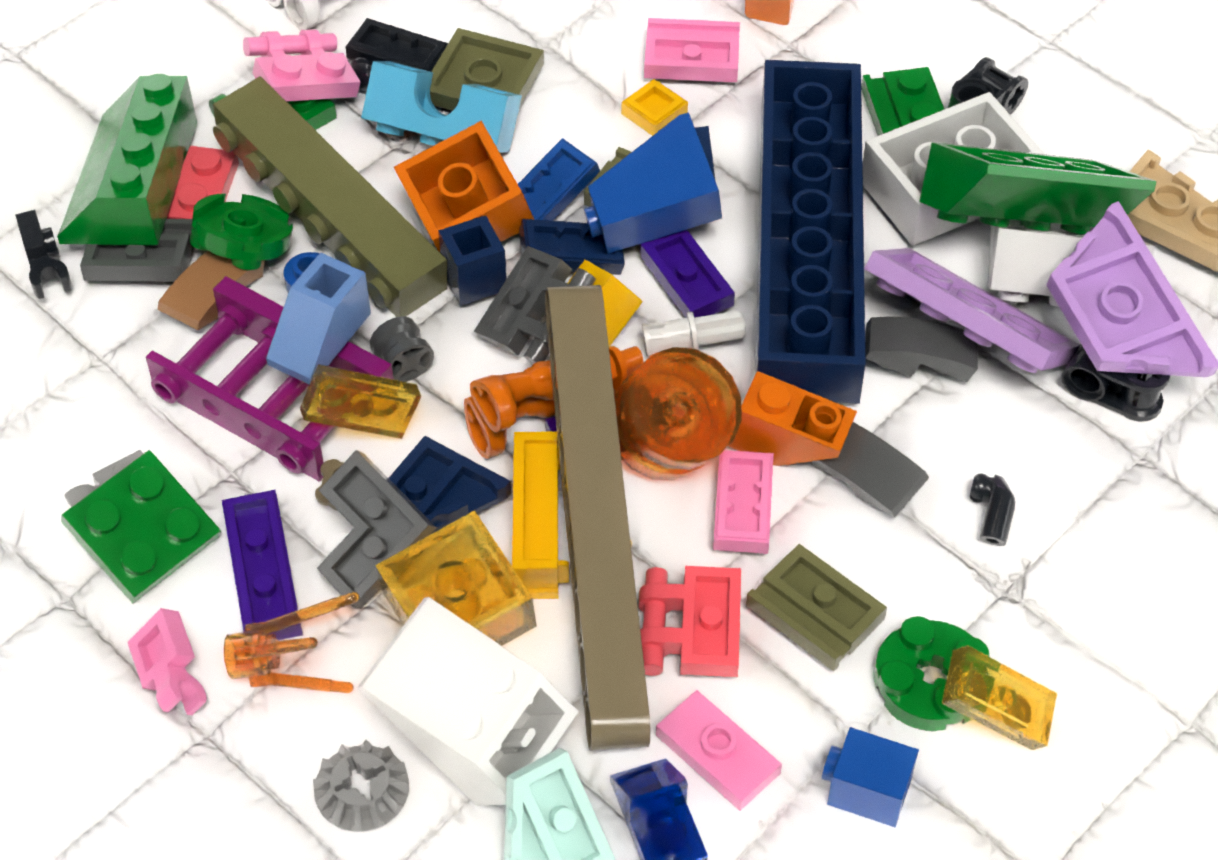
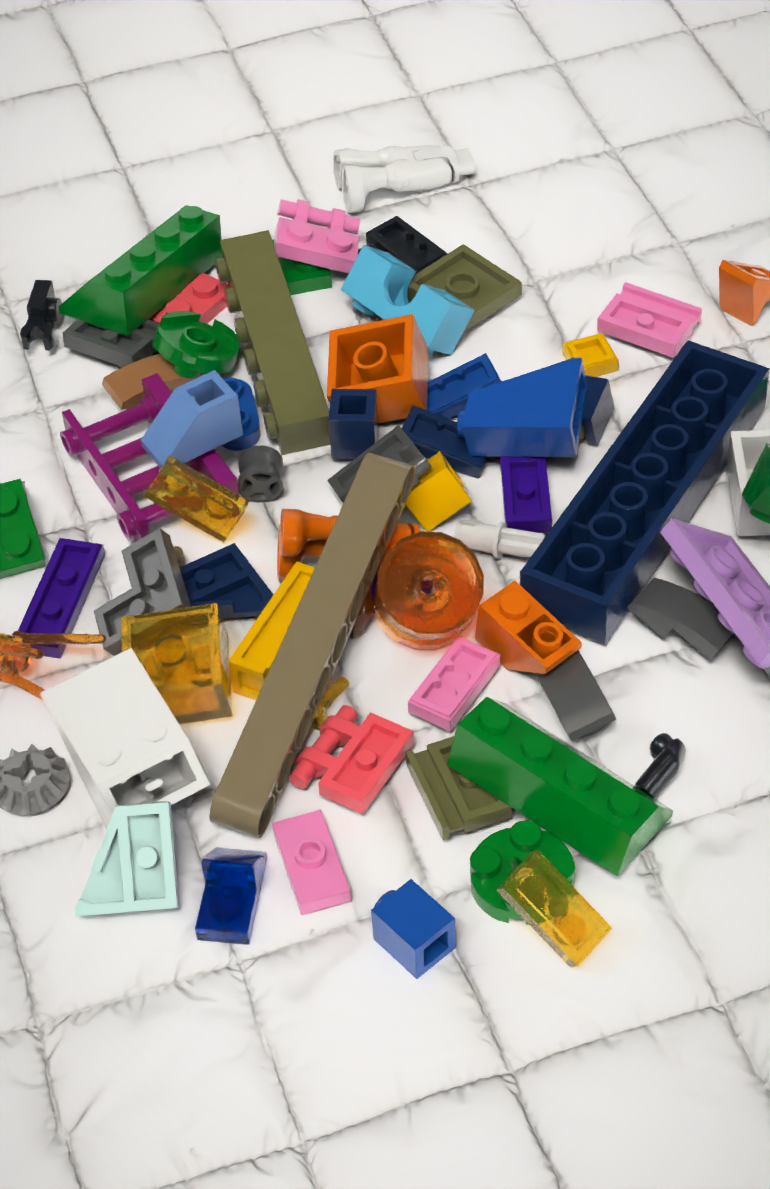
camera: 30 degrees right, 5 degrees down
(923, 571) = (555, 785): none -> green slope

